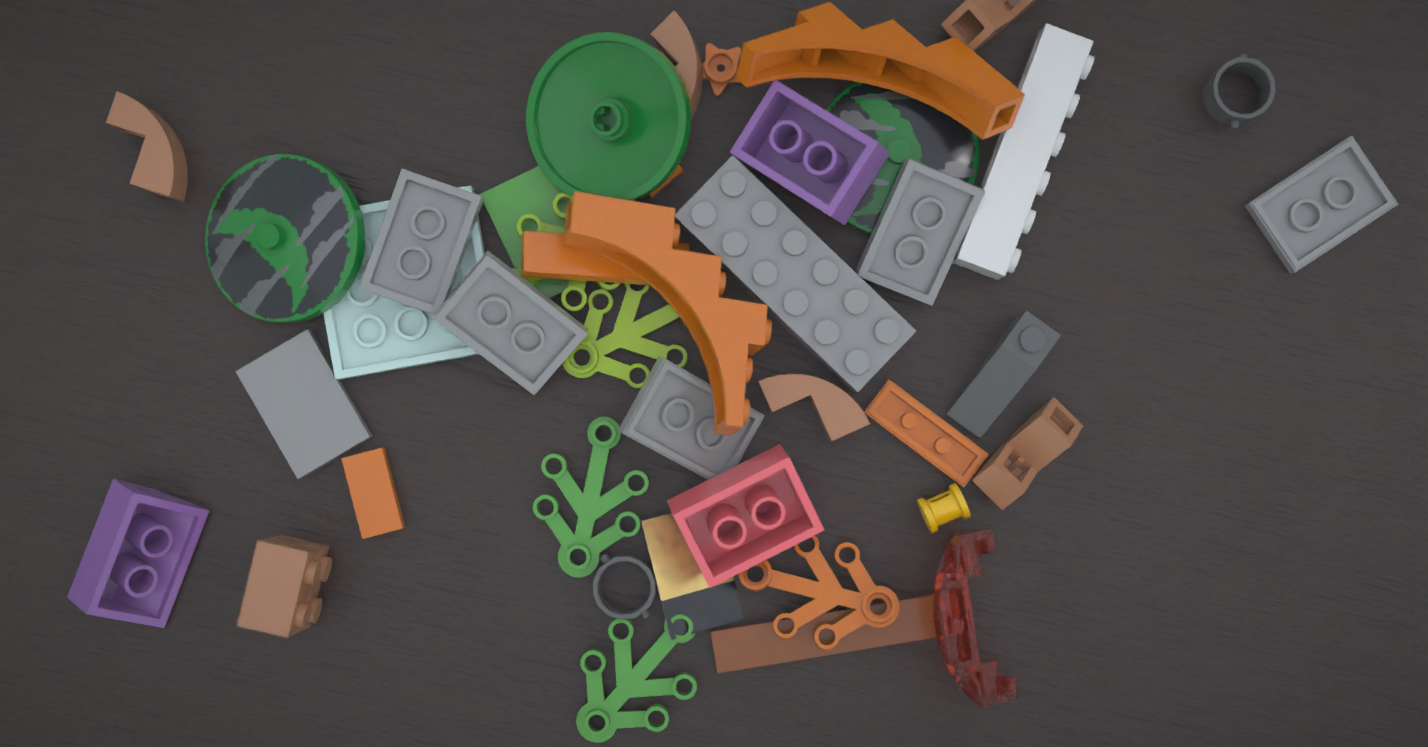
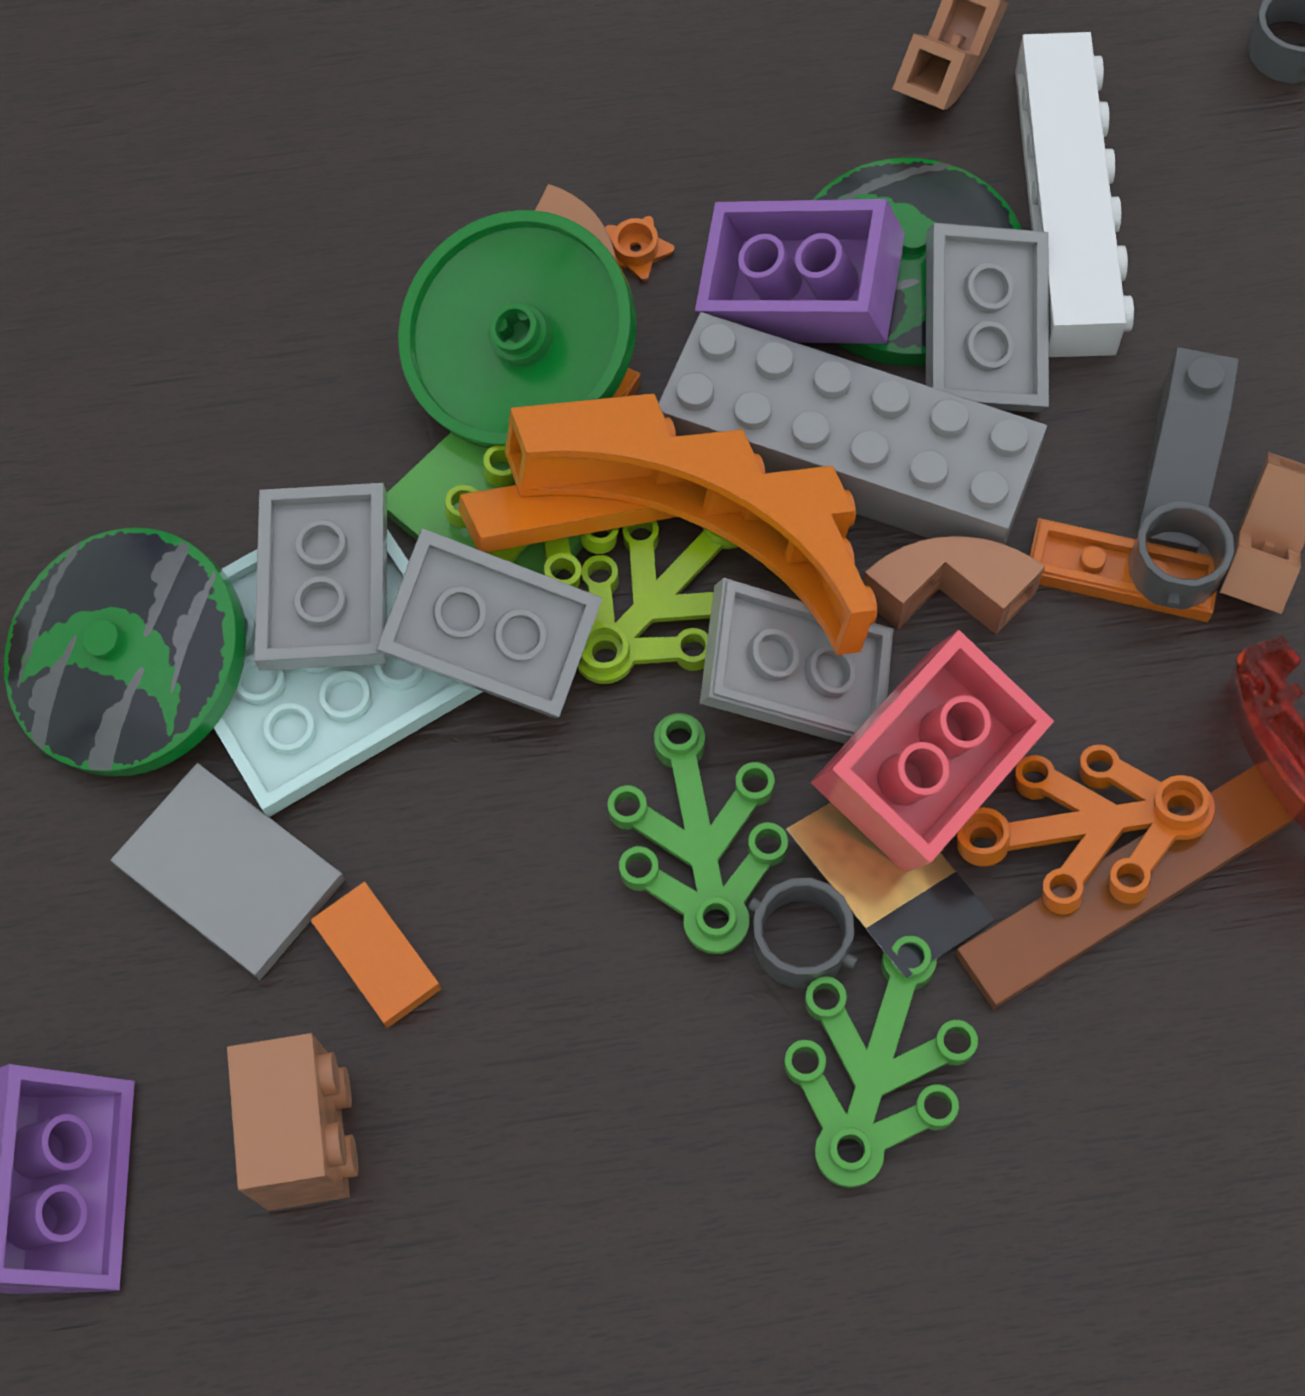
camera: 20 degrees left, 20 degrees down
(889, 57) = (850, 139): orange arch -> none
(943, 508) = (1199, 648): yellow bush -> none
(987, 448) = (1192, 520): none -> dark grey piece

